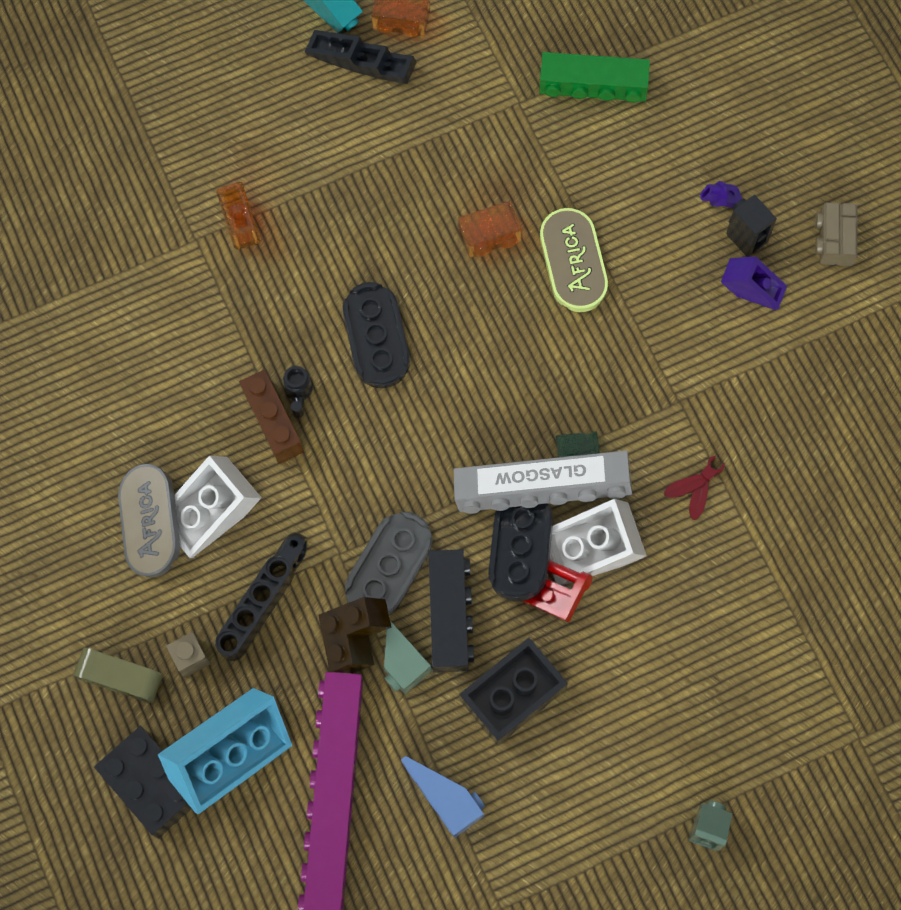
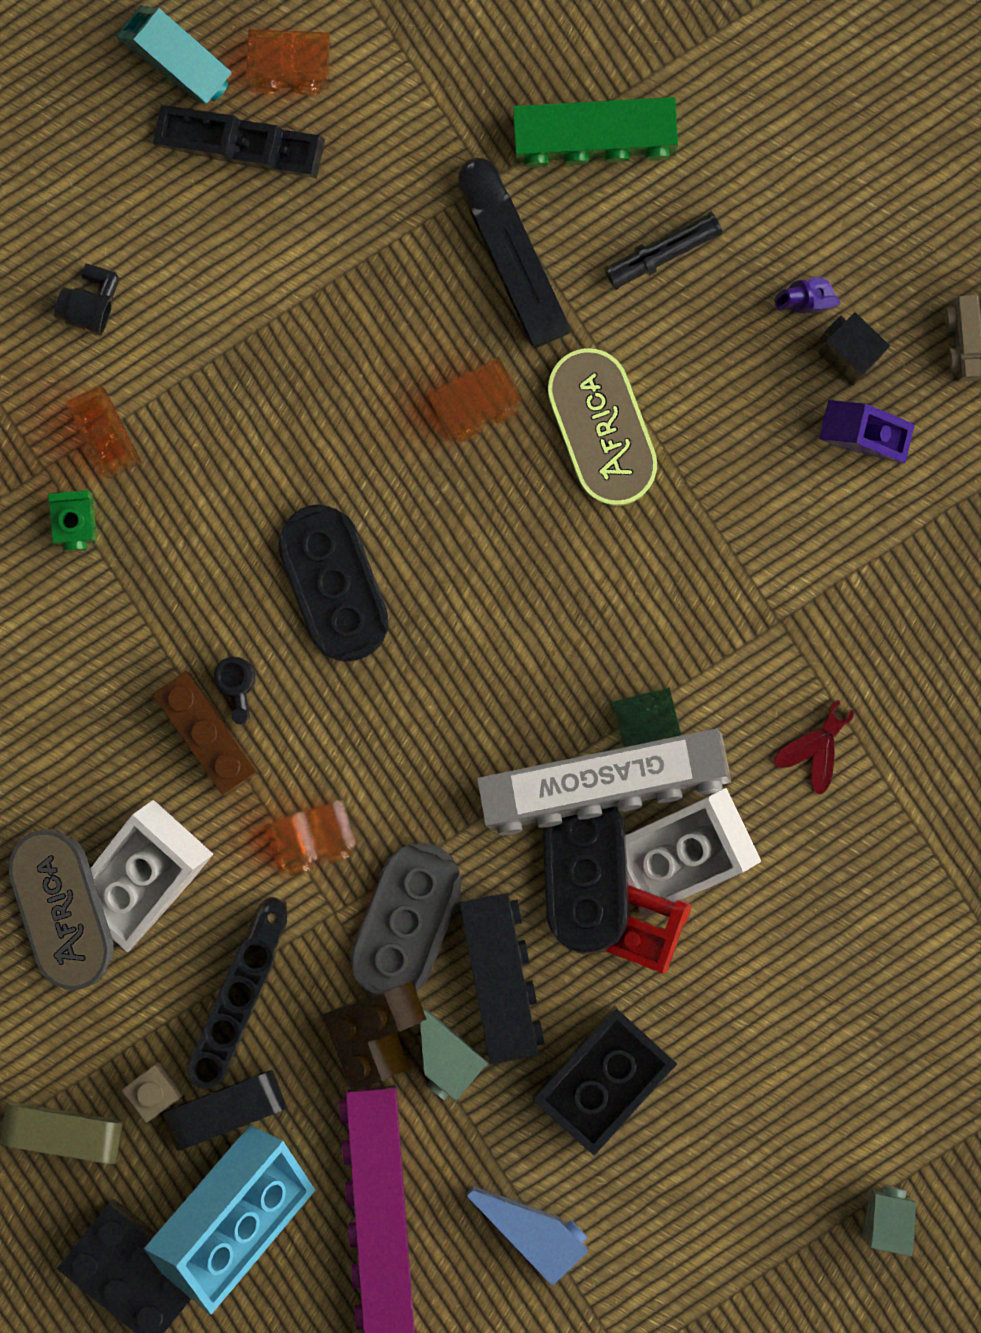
camera: 15 degrees left, 15 degrees up
(213, 261) = (76, 503): none -> green brick
(237, 676) = (224, 1110): none -> black beam
(243, 142) = (88, 309): none -> black piece
(331, 496) = (311, 837): none -> clear orange brick
(529, 144) = (512, 253): none -> black piece
(618, 158) = (648, 258): none -> black pin

